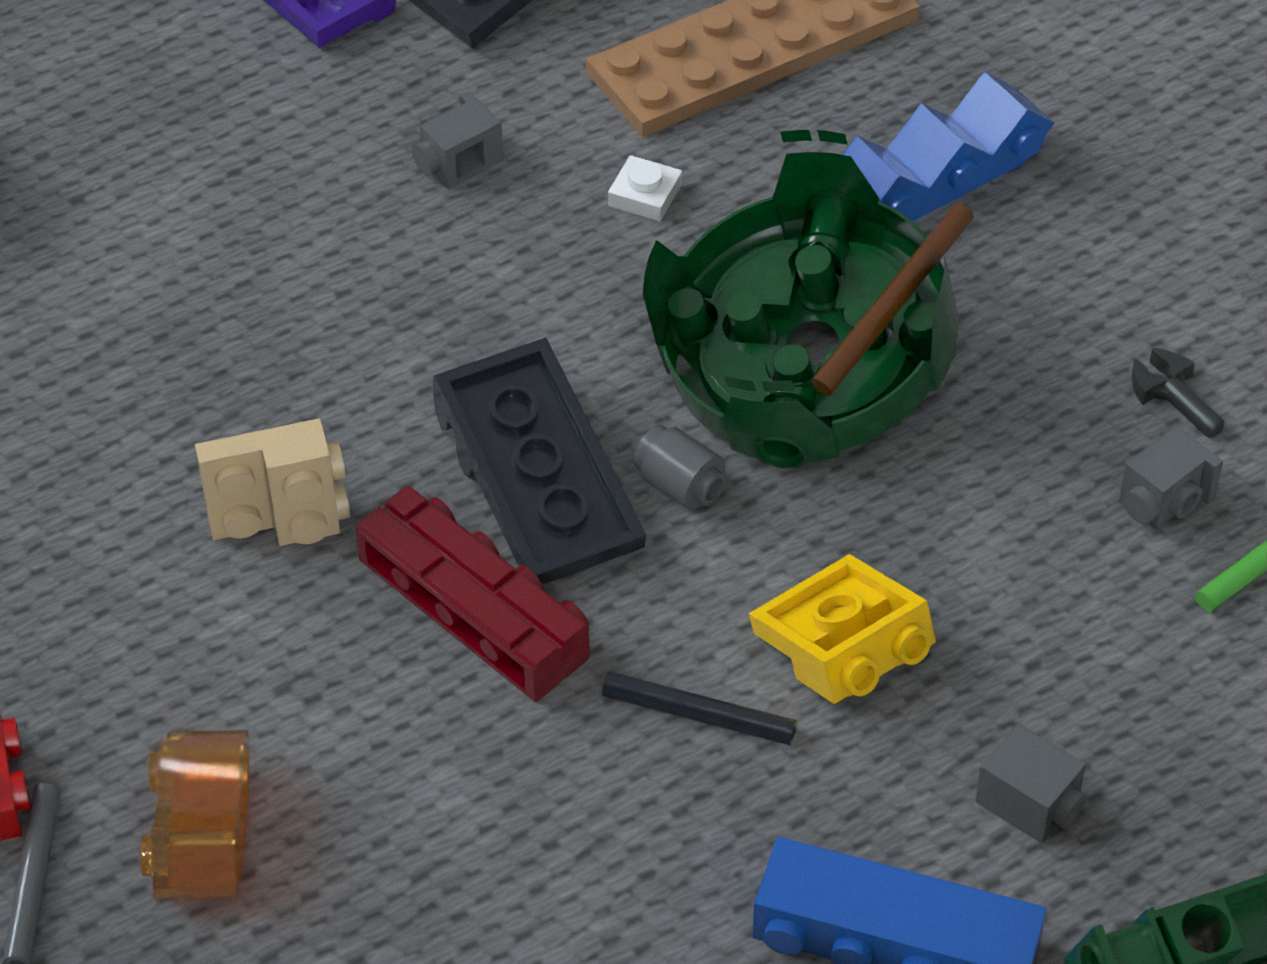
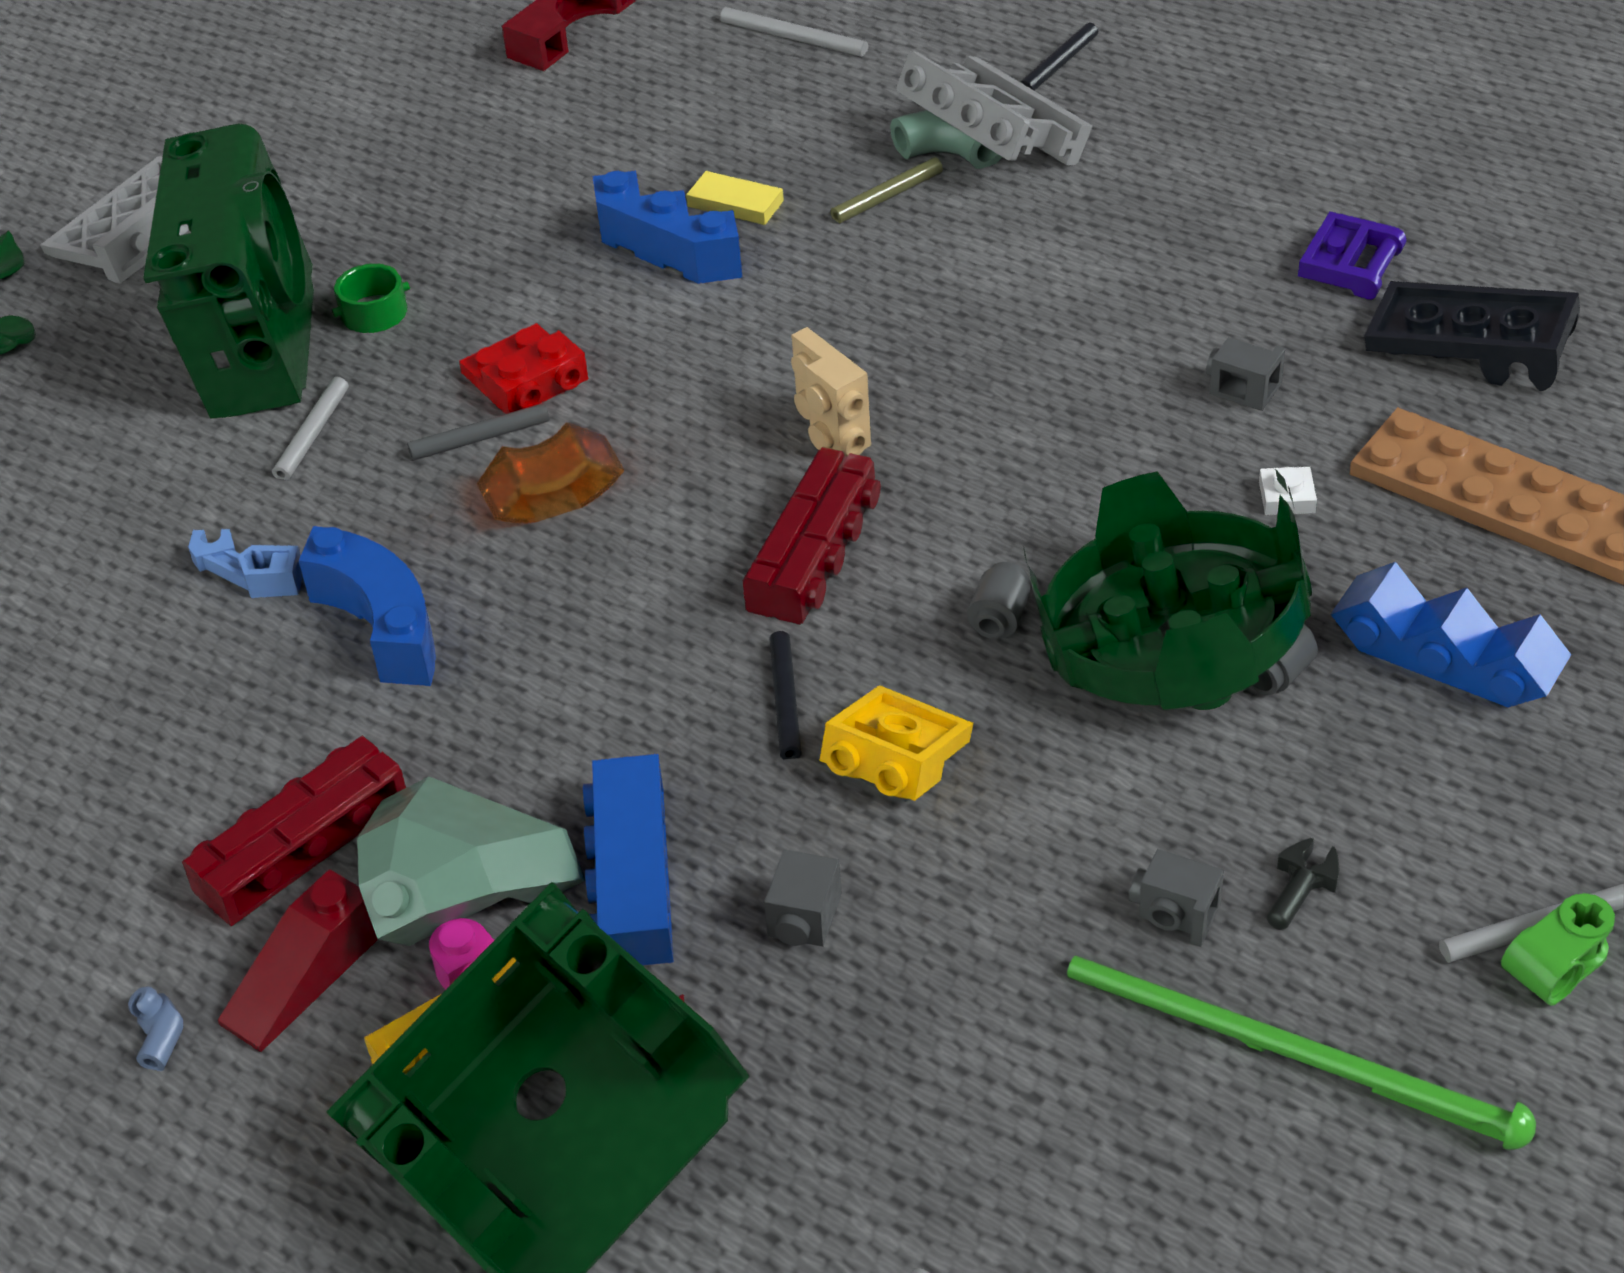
camera: 70 degrees right, 5 degrees down
(537, 461) = (949, 520): black hinge -> none
(892, 299) = (1158, 623): reddish brown bar -> none

